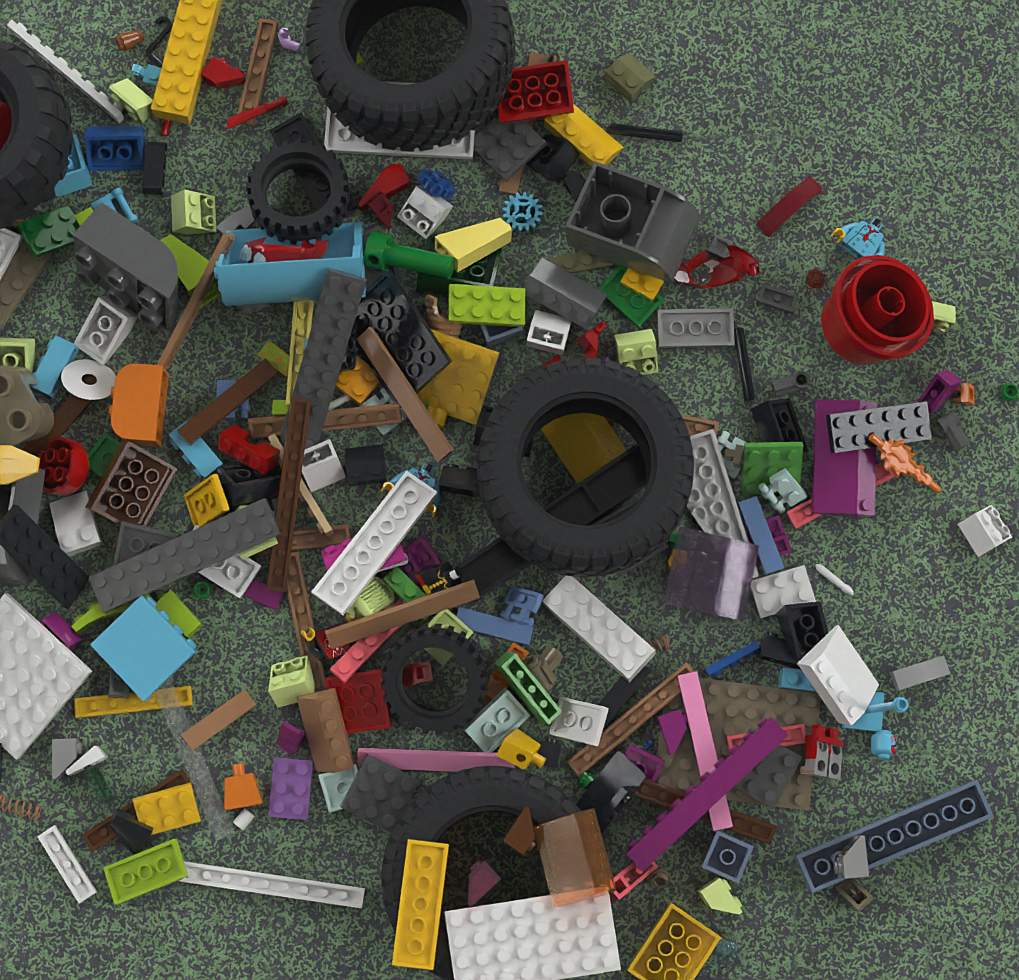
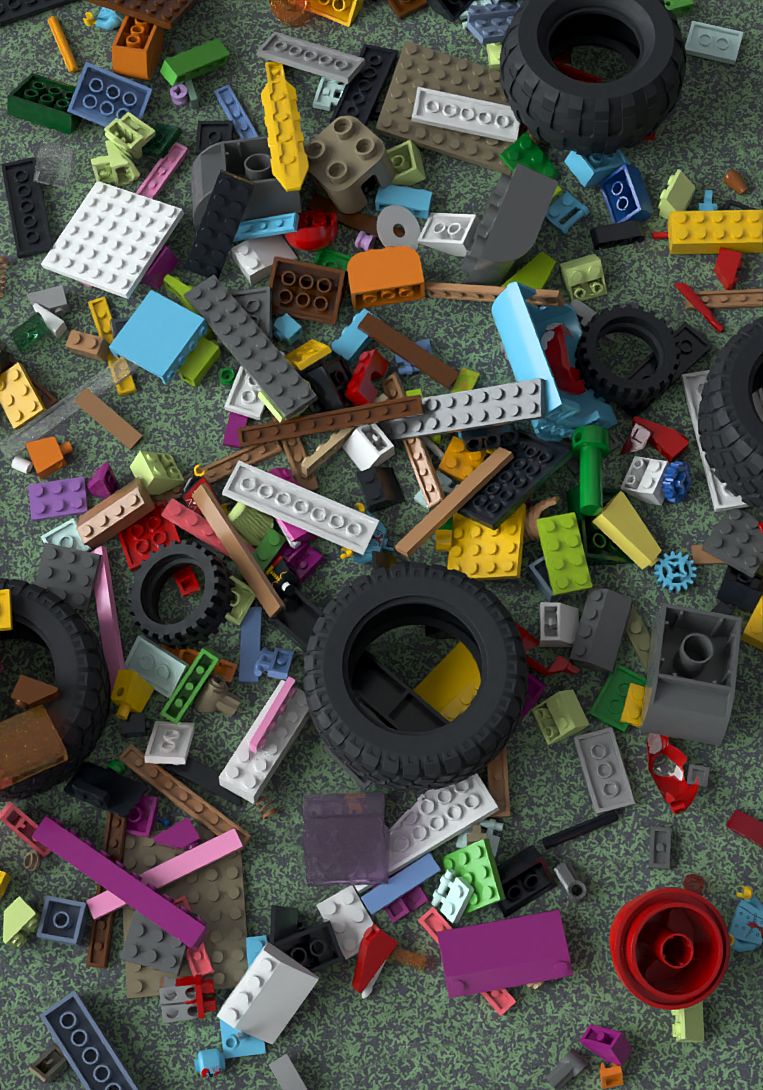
camera: 85 degrees right, 10 degrees down
(52, 508) = (267, 226): none -> medium azure tile
(61, 66) = (690, 132): white plate -> none
(89, 417) = (365, 241): none -> lavender wheel
(130, 724) = (88, 345): none -> medium nougat brick
(167, 517) = (287, 329): none -> medium azure brick
(575, 608) = (269, 722): none -> bright pink plate
(732, 660) = (264, 883): blue plate -> none
(819, 576) = (373, 952): none -> red slope
(827, 546) = (408, 959): none -> clear orange piece
(852, 429) = (545, 981): plate -> none
(852, 859) = (73, 1045): light grey slope -> none
(898, 459) = (516, 1012): orange piece -> none

